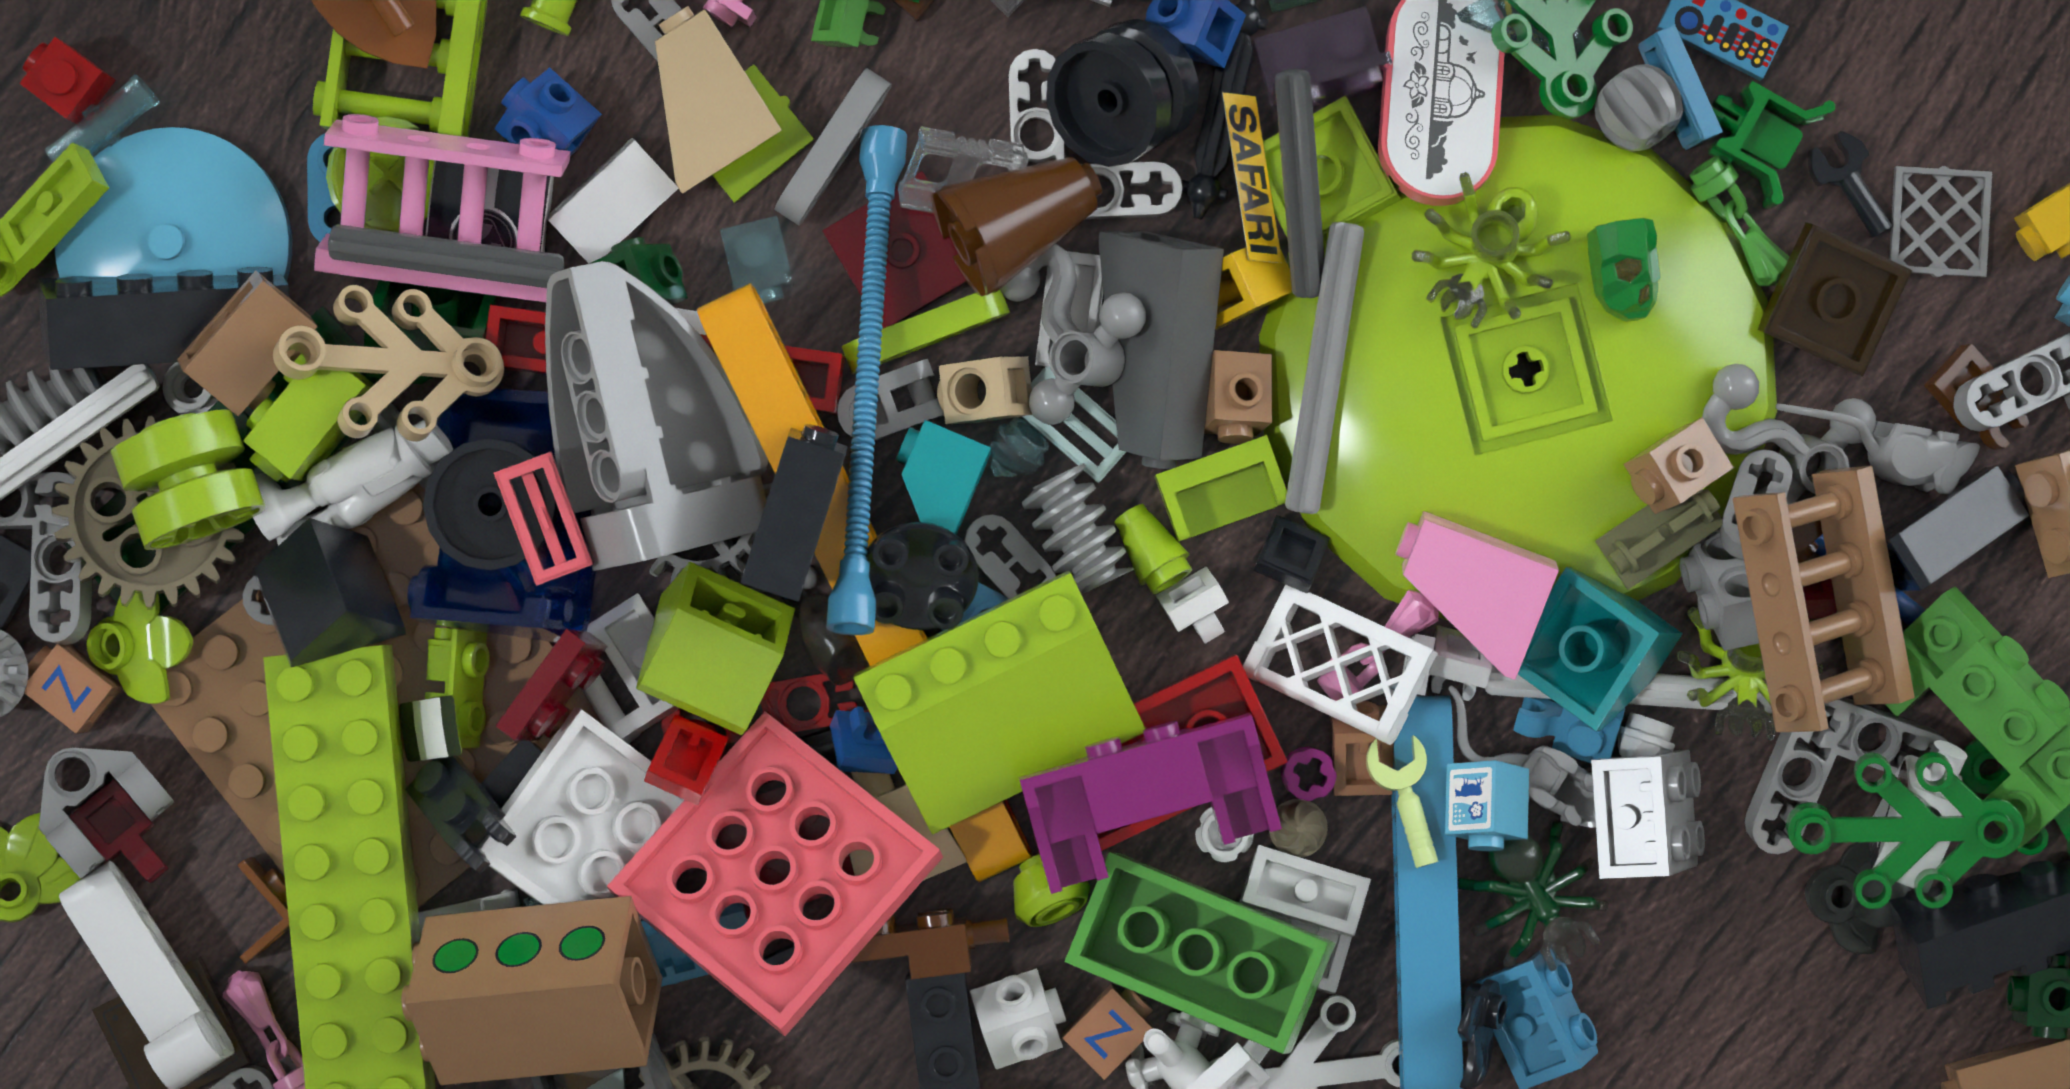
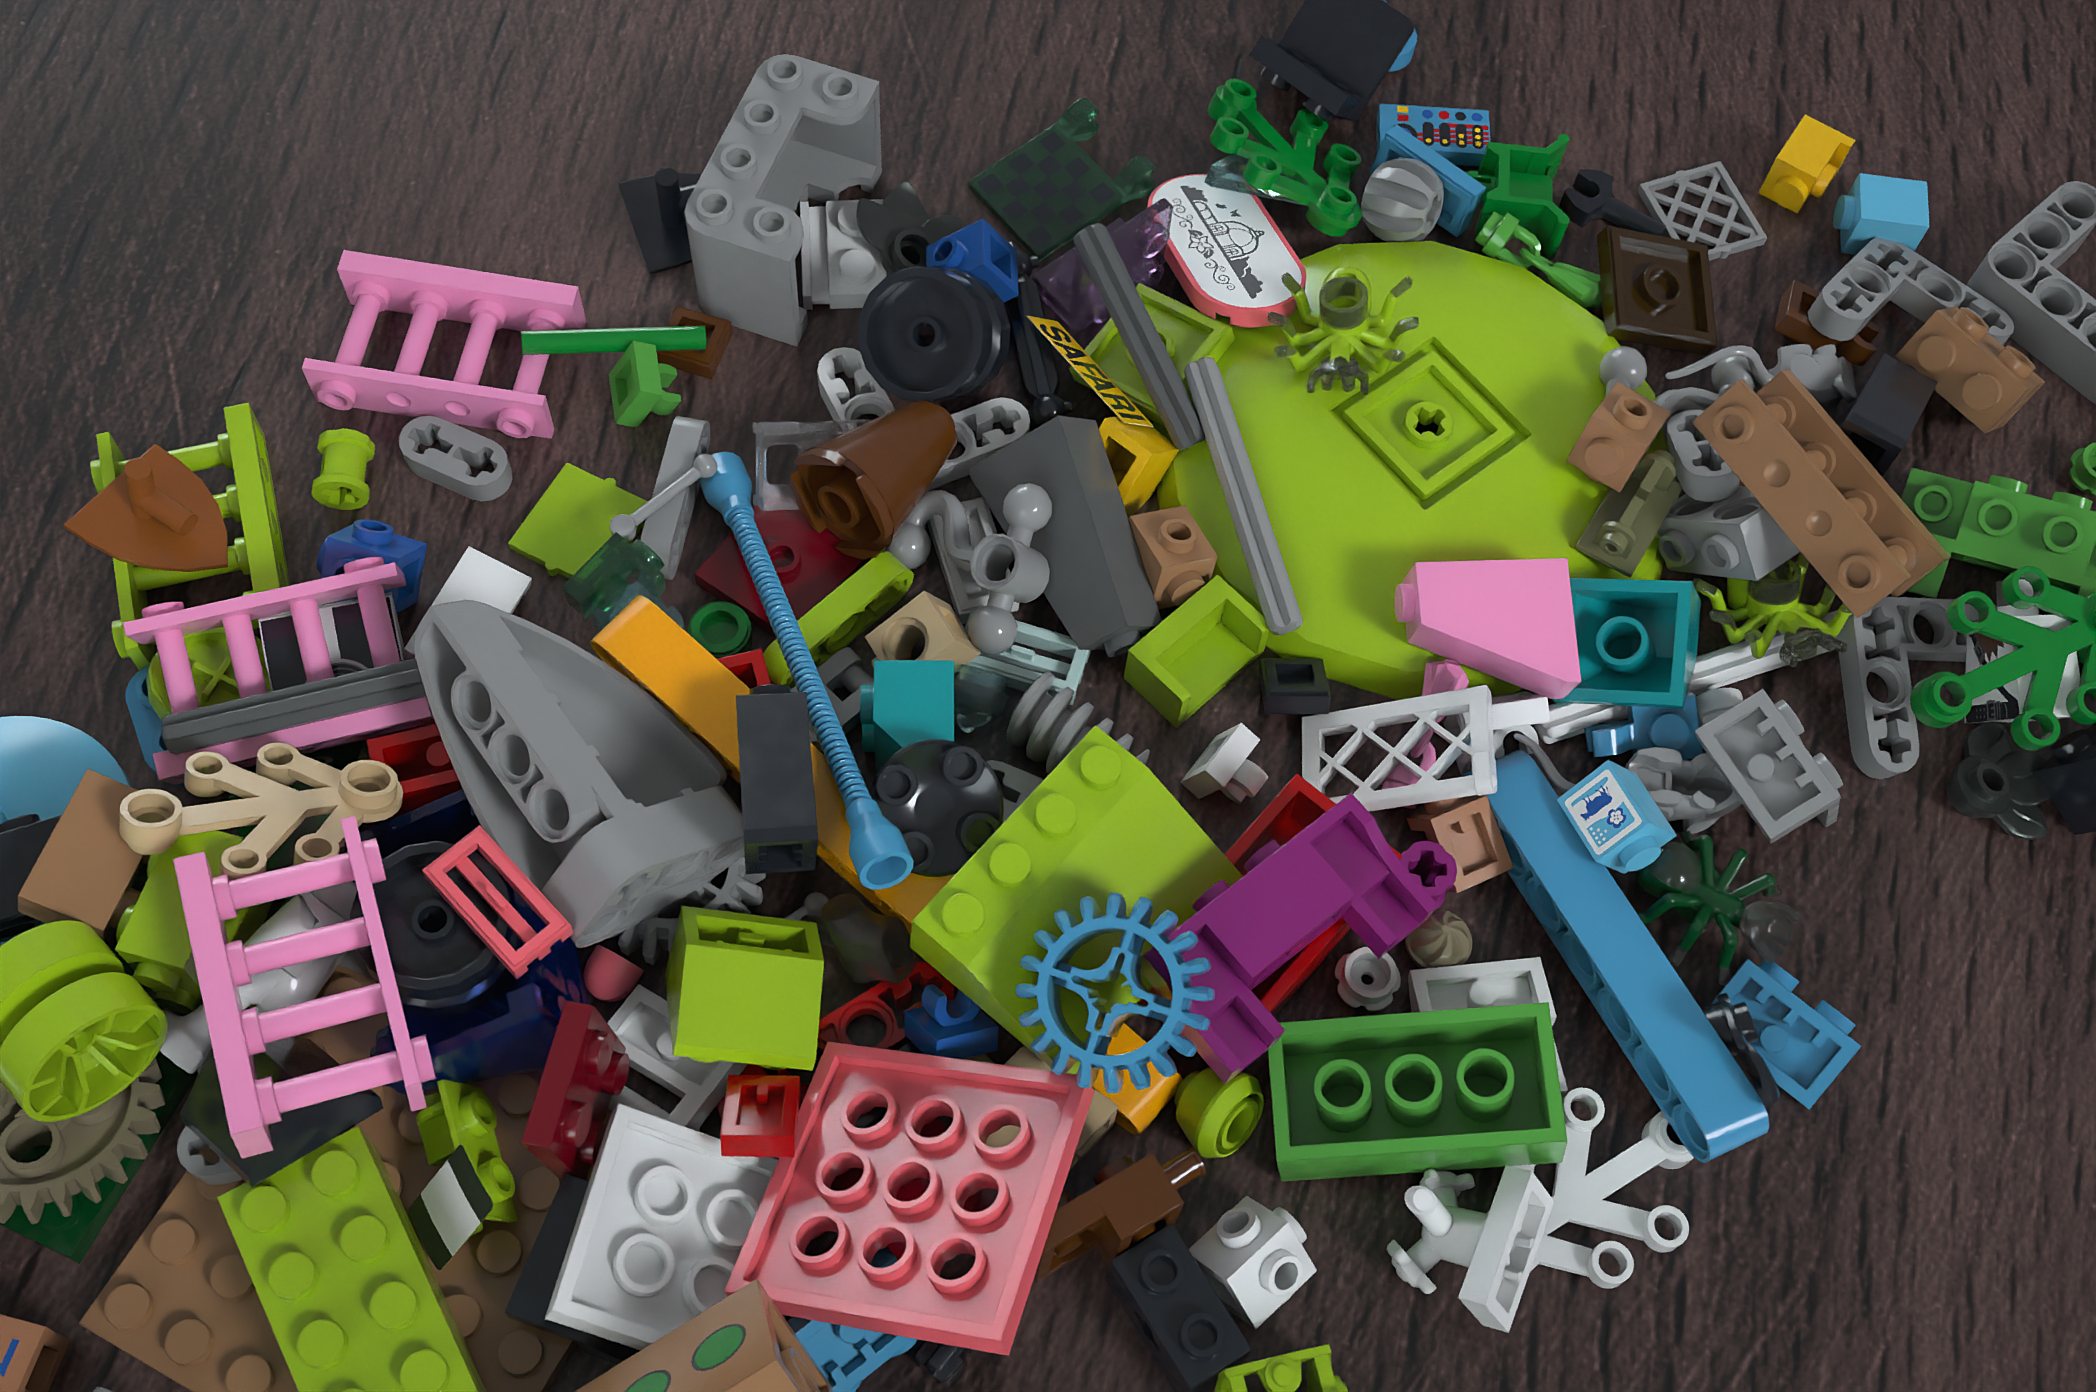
camera: 25 degrees left, 25 degrees down
(146, 648) = (70, 1273): lime plate -> none
(320, 564) = (242, 1033): none -> bright pink fence
(459, 809) = (514, 1276): black hinge -> none
(622, 578) = (610, 975): none -> coral hinge
(707, 99) = (531, 488): tan slope -> none
(736, 222) = (603, 576): none -> clear green bracket
(773, 175) = (625, 525): none -> light grey hinge
(823, 293) = (721, 629): none -> green tile
(944, 777) = (1104, 1024): none -> dark azure gear
(1109, 1029) = (1356, 1232): nougat brick -> none
(1152, 550) = (1168, 735): lime cone -> none
(1408, 802) = (1518, 832): yellowish green piece -> none
(1625, 267) = (1468, 299): green rock -> none

